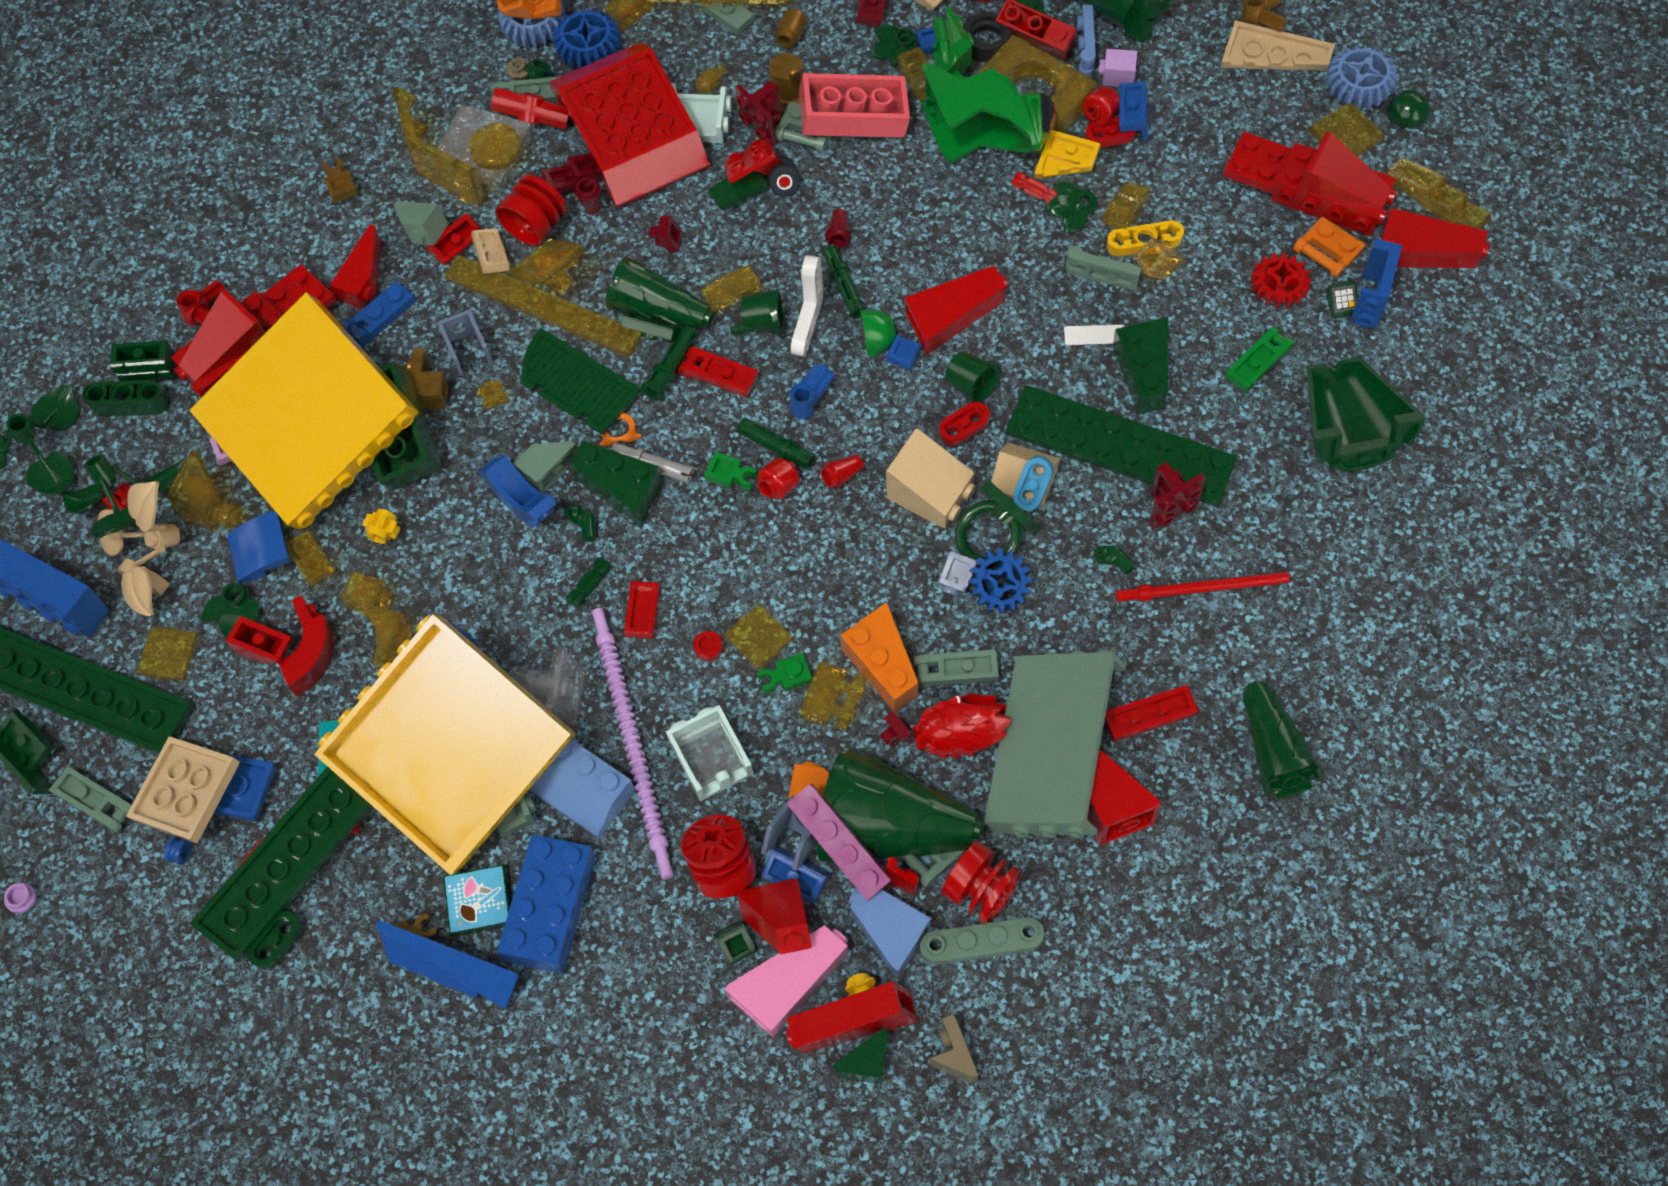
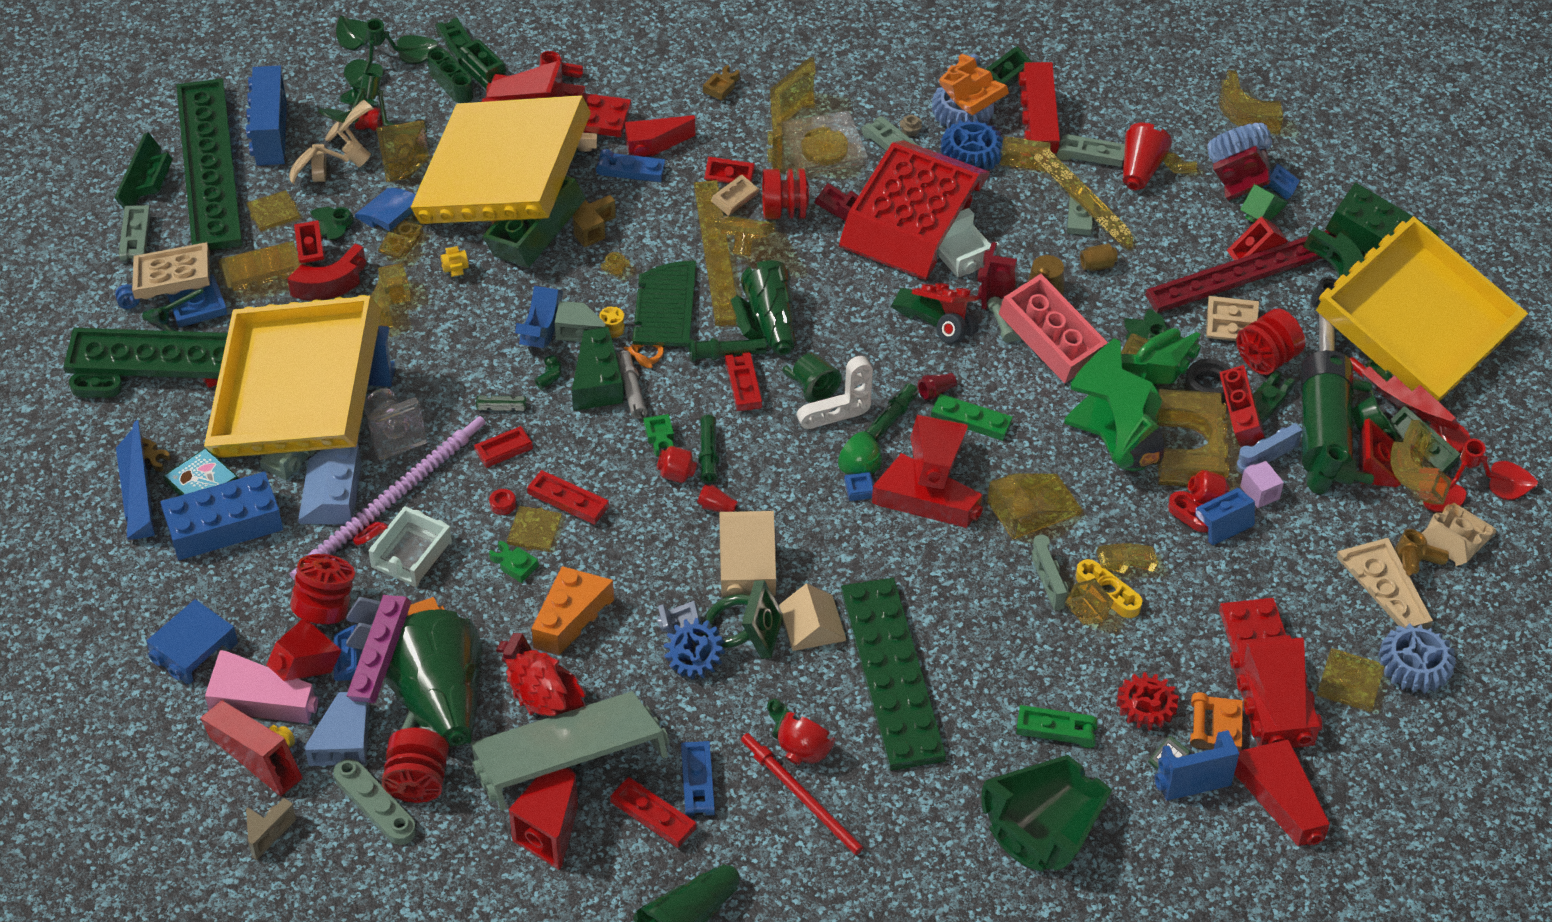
camera: 50 degrees right, 15 degrees down
(19, 897) = (39, 238): lavender plate -> none
(78, 366) = (453, 36): none -> dark green plate
(229, 515) = (401, 178): clear yellow plate -> none
(231, 830) = (160, 315): none -> dark green plant
(238, 702) = (259, 265): none -> clear yellow slope
(421, 221) = (720, 141): sand green slope -> none
(469, 328) = (638, 211): sand blue piece -> none
(530, 108) = (874, 140): red piece -> none
(537, 69) = (918, 134): dark green plate -> none
(564, 429) = (614, 320): none -> yellow wheel
(588, 193) = (829, 219): dark red cone -> none
(666, 234) = (839, 286): dark red tile -> none
(674, 767) = (369, 532): none -> red piece
(685, 1012) = (190, 640): none -> blue panel
(709, 79) = (1005, 236): clear yellow cylinder -> none
(730, 288) = (827, 347): clear yellow slope -> none
(734, 942) = (263, 644): dark green slope -> none
(747, 588) = (568, 497): none -> red plate
(810, 391) = (763, 443): blue piece -> none
(824, 693) = (513, 593): clear yellow plate -> none
(866, 1061) = (226, 773): dark green slope -> none
(890, 225) = (976, 417): none -> green plate
(902, 879) = (386, 711): red tile -> none
(926, 269) = (935, 449): none -> red slope
(957, 668) = (598, 664): sand green plate -> none
(962, 424) = (826, 556): red plate -> none
(973, 376) = (868, 537): dark green hat -> none
(1018, 238) = (1031, 502): none -> clear yellow slope
(1033, 187) = (1091, 491): red axle -> none
(1034, 482) = (797, 621): dark azure plate -> none
(1066, 155) = (1140, 493): yellow wing -> none
(1068, 206) = (1089, 519): dark green plate -> none
(1090, 334) = (986, 603): white sticker -> none
(1139, 658) = (697, 777): none -> blue plate
(1144, 362) = (980, 643): dark green wedge -> none
(1158, 552) = (804, 740): none -> red cylinder
(1173, 496) = (860, 723): dark red bracket -> none
(1408, 109) = (1418, 711): dark green hair -> none
(1432, 193) = (1343, 777): clear yellow slope -> none

